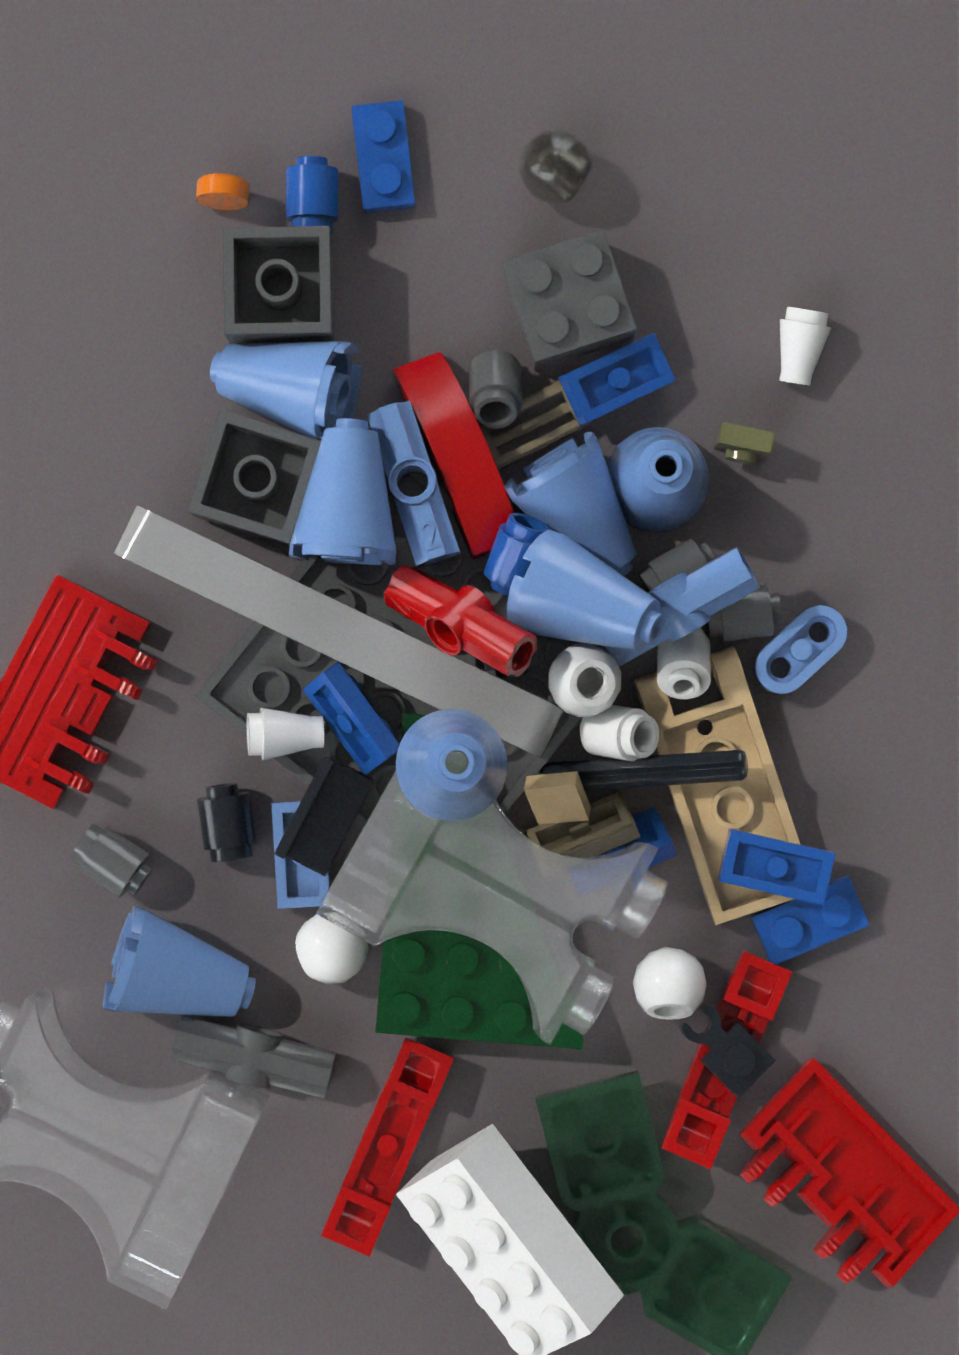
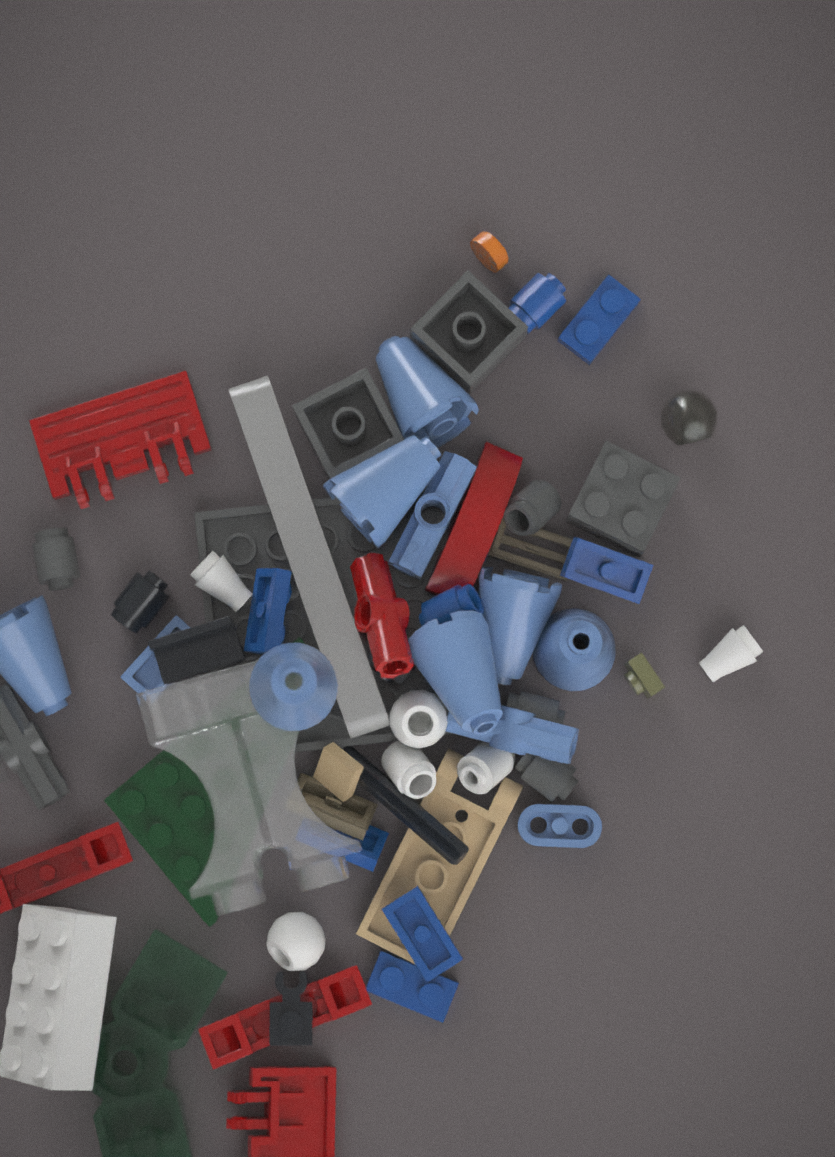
camera: 45 degrees right, 5 degrees down
(329, 951) = (124, 730): white piece -> none

